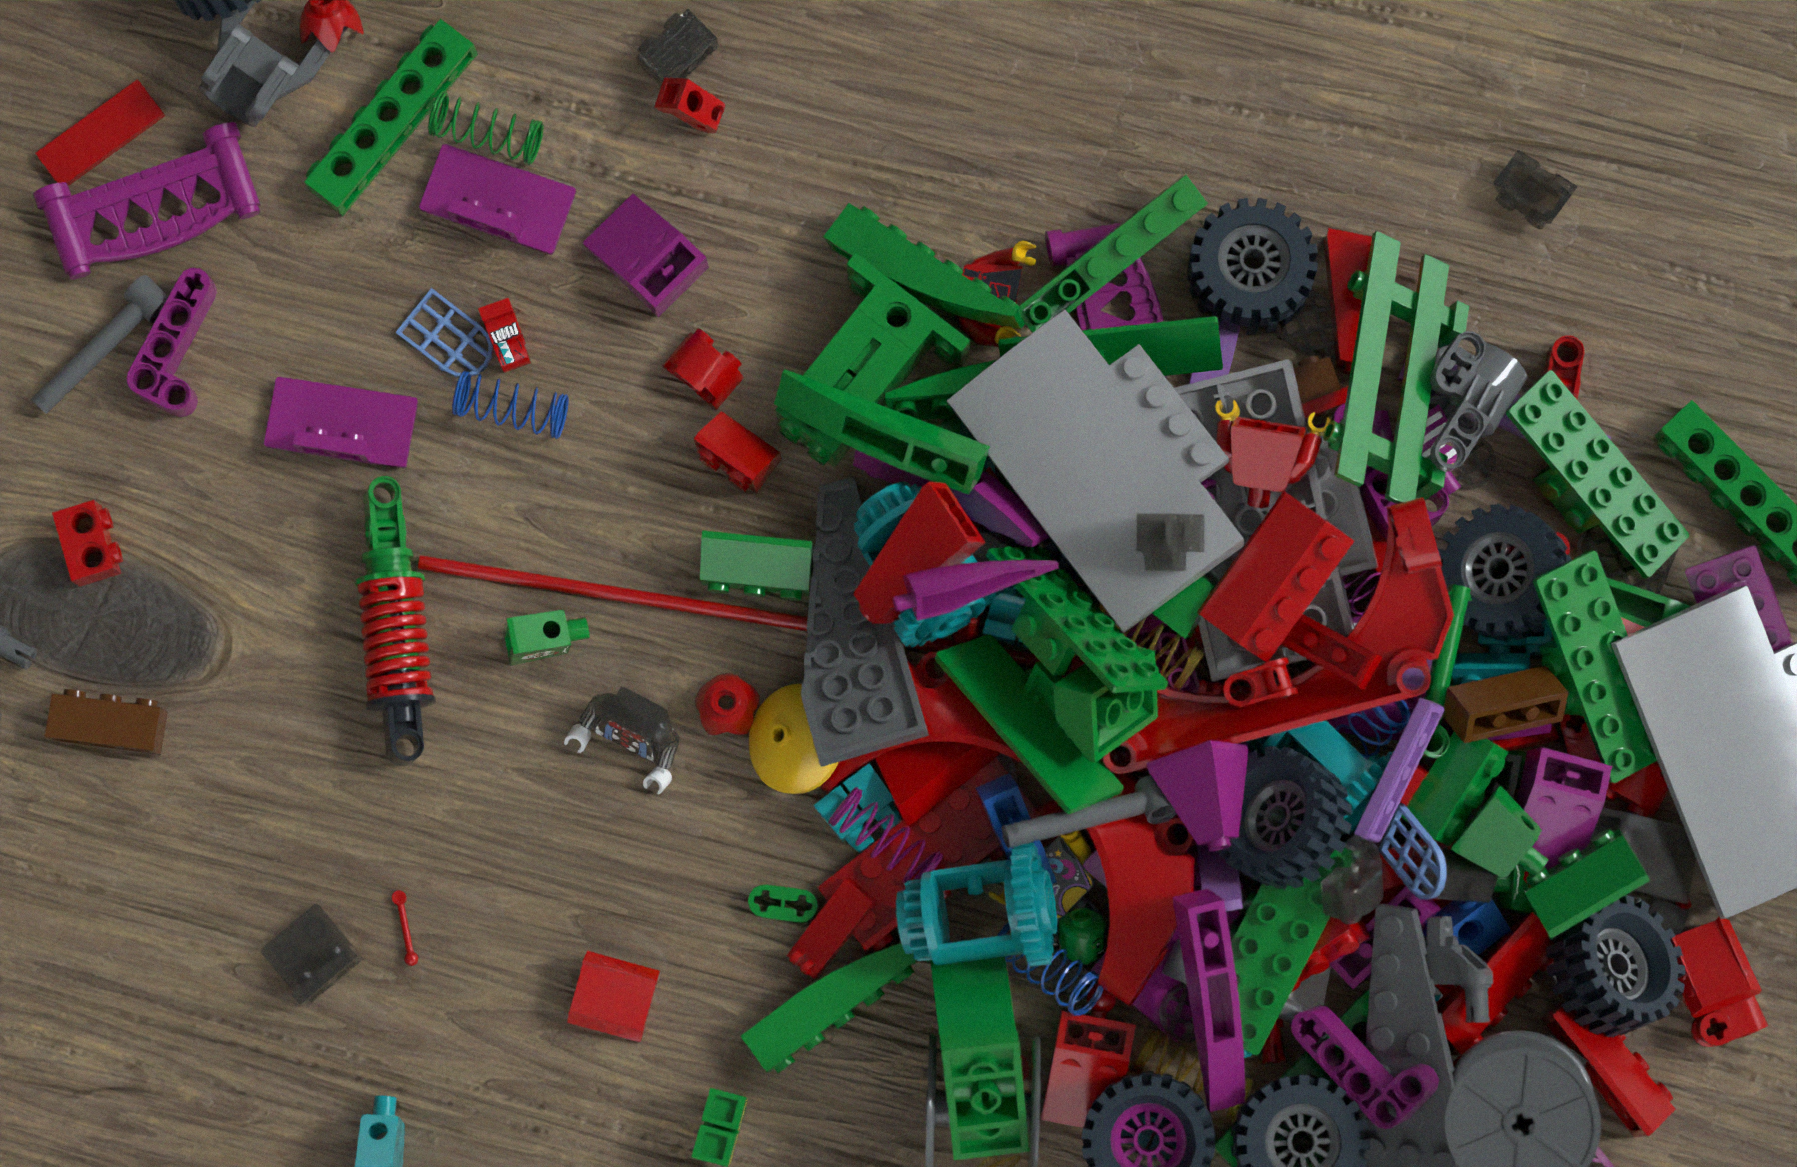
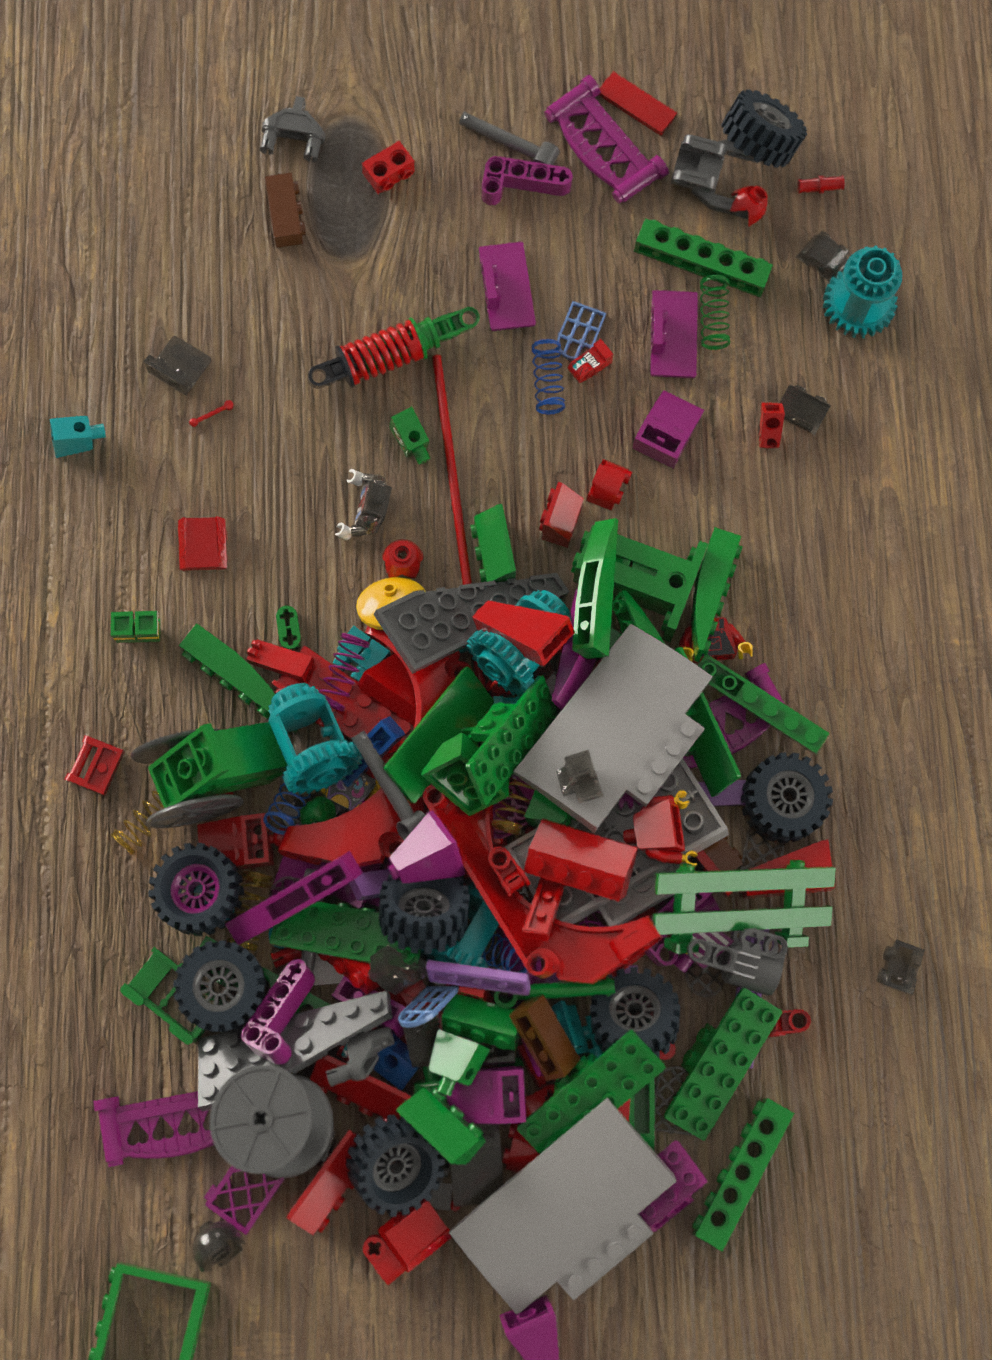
camera: 65 degrees right, 5 degrees down
(954, 586) = (506, 652): magenta piece -> none

